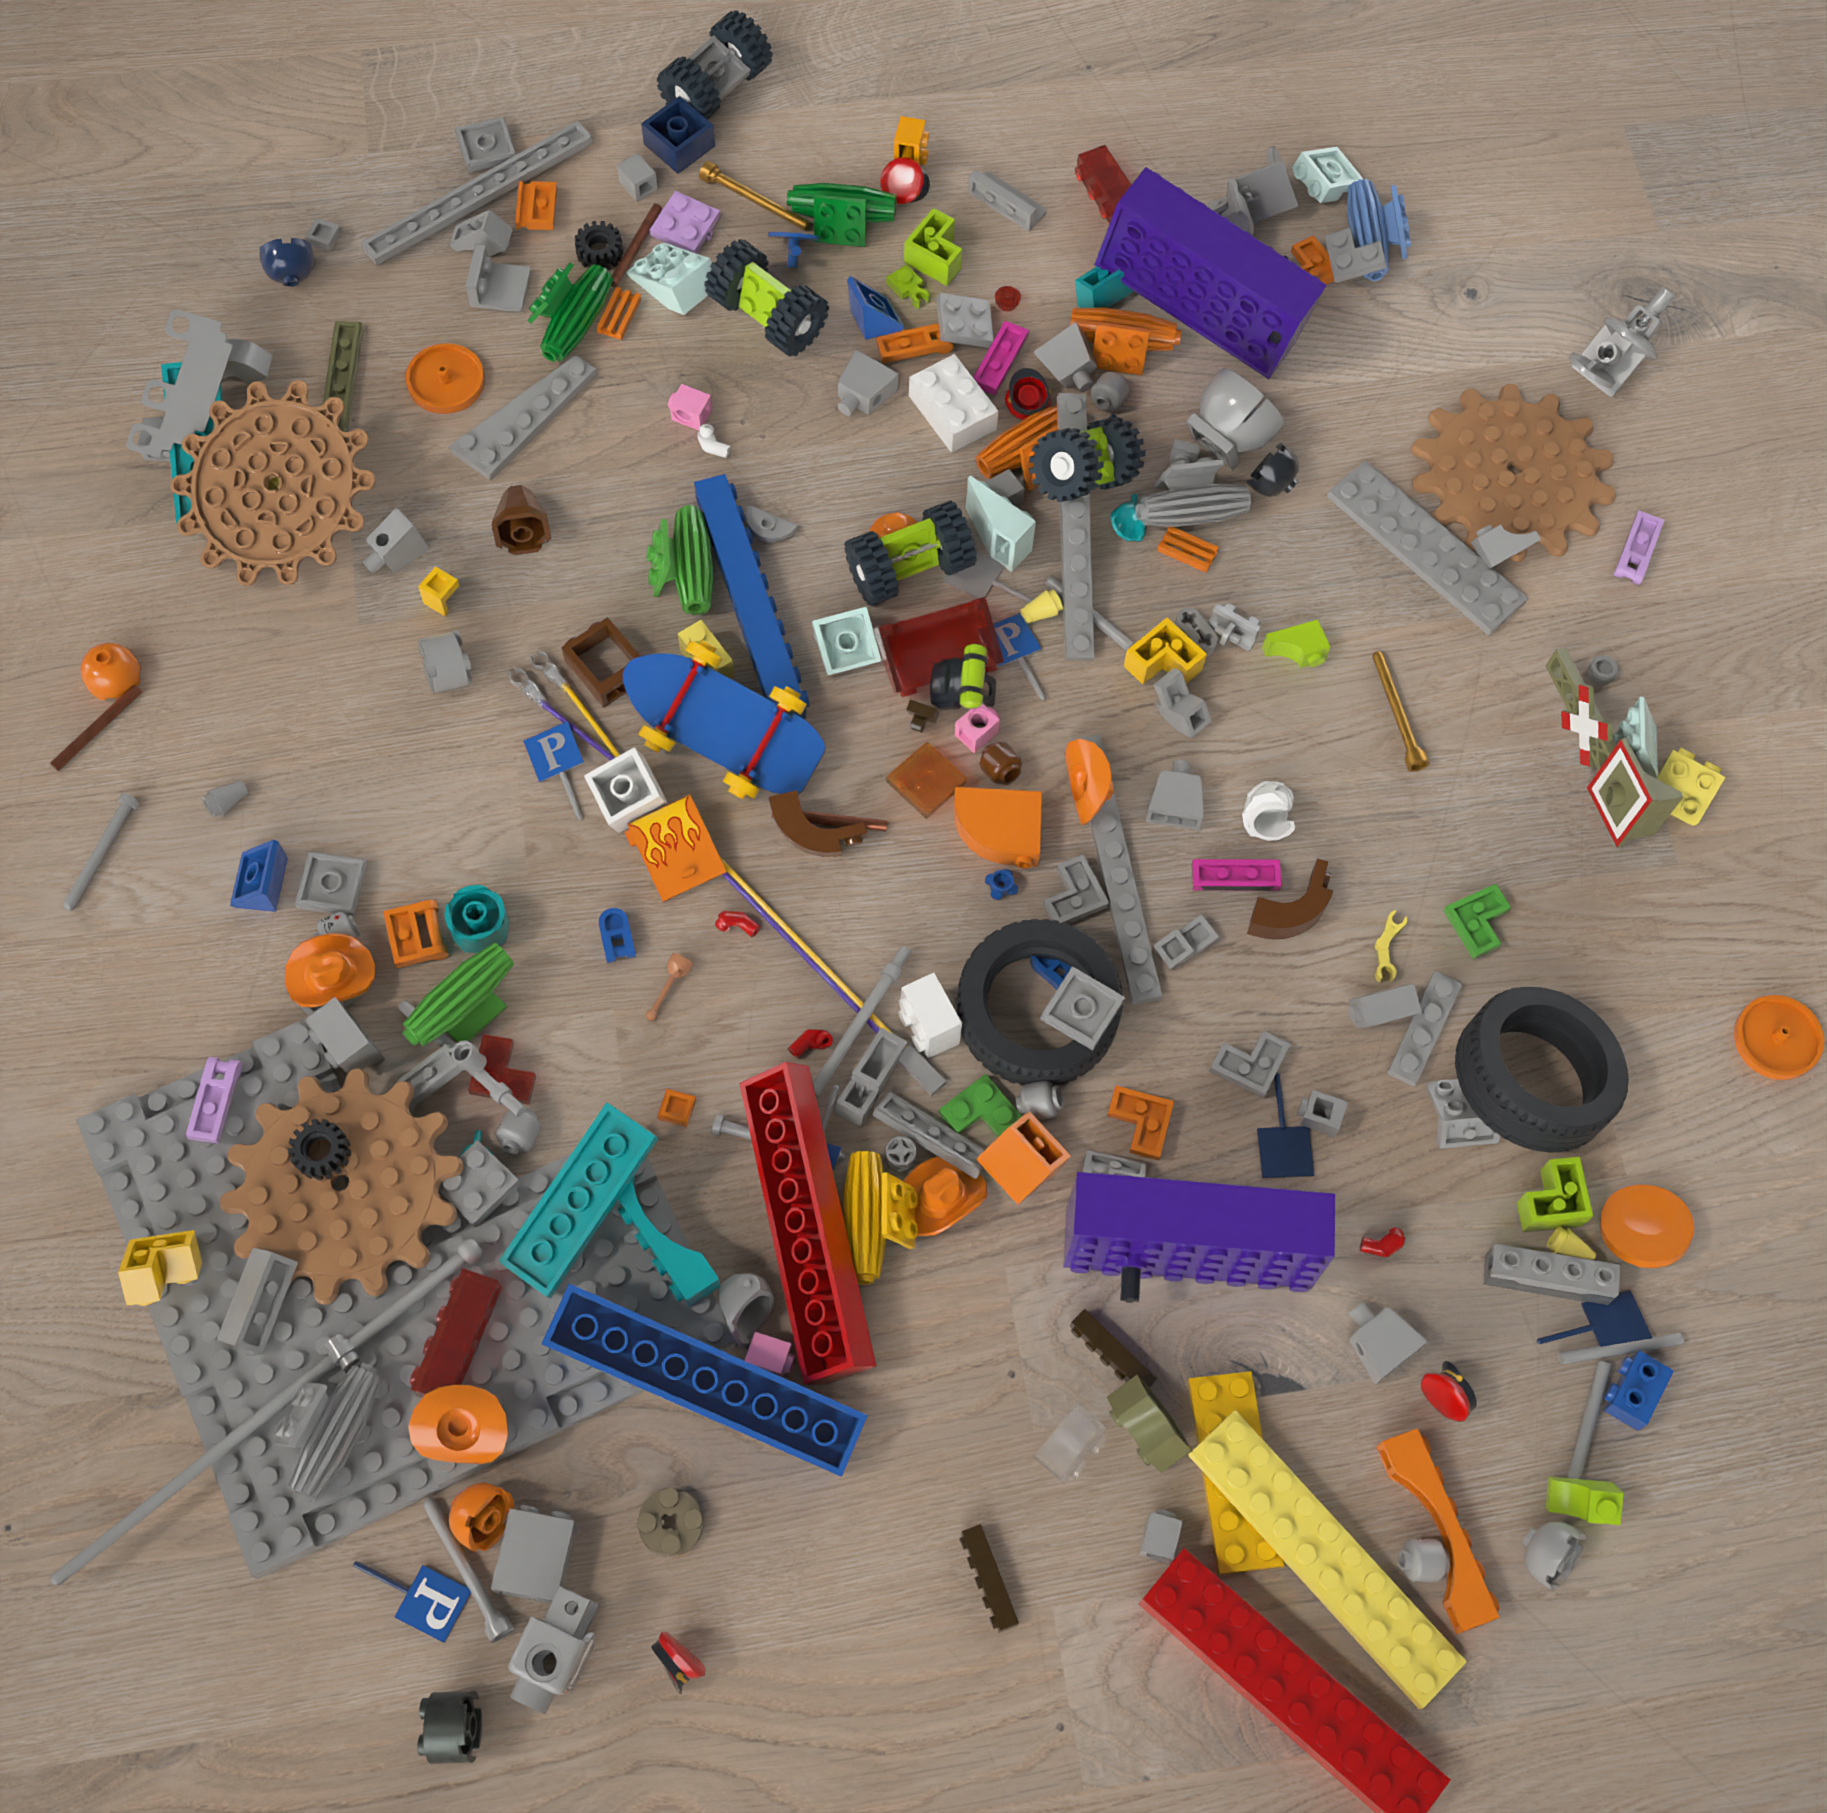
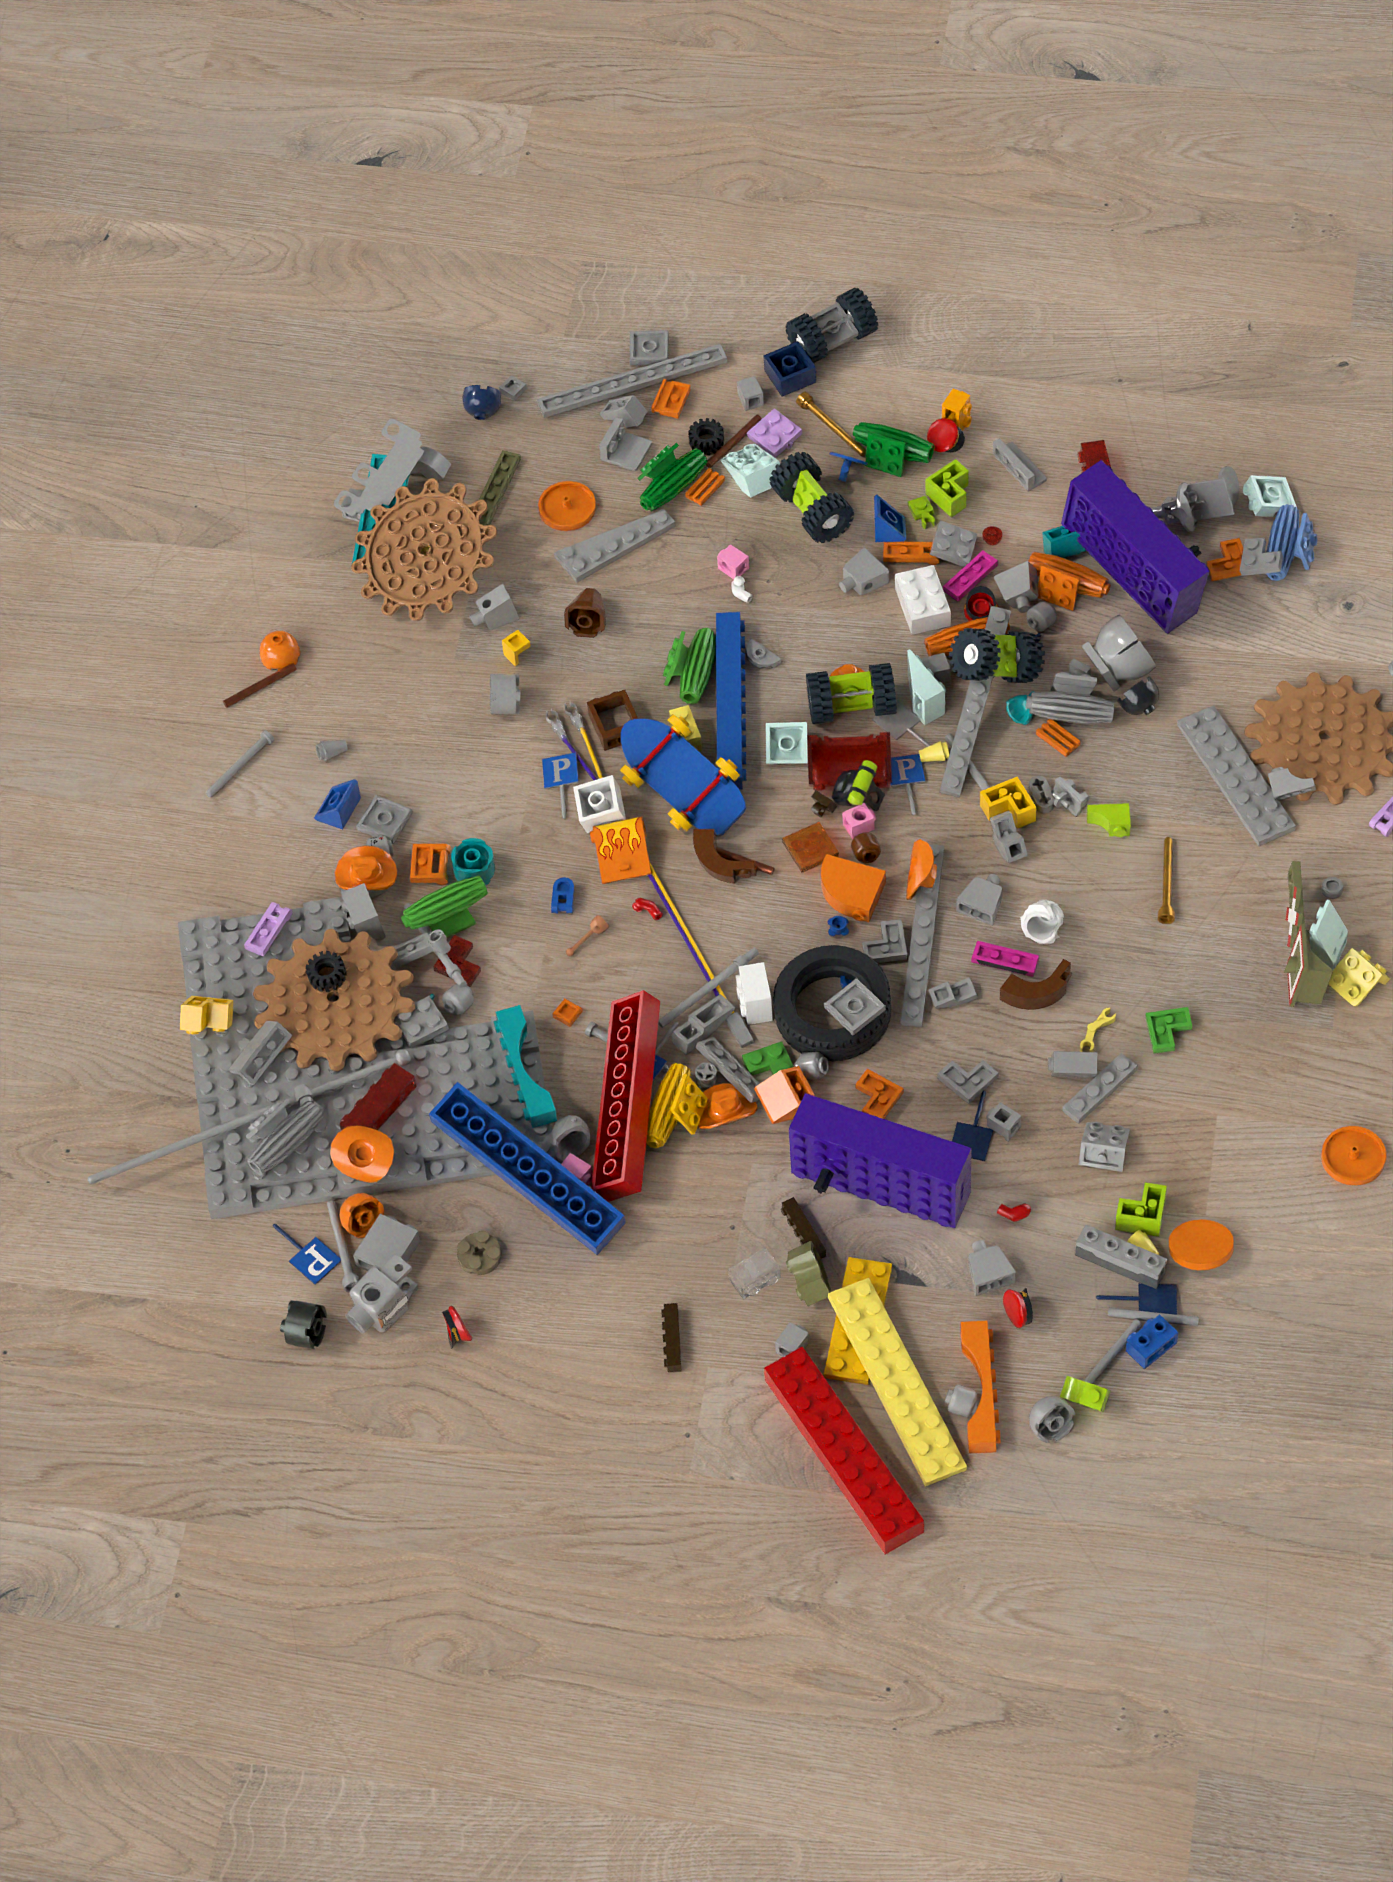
camera: 25 degrees right, 10 degrees down
(578, 1200) = (481, 1040): teal plate -> none
(810, 1040) = (672, 992): red arm -> none
(1576, 1034) = (1150, 1158): black tyre -> none

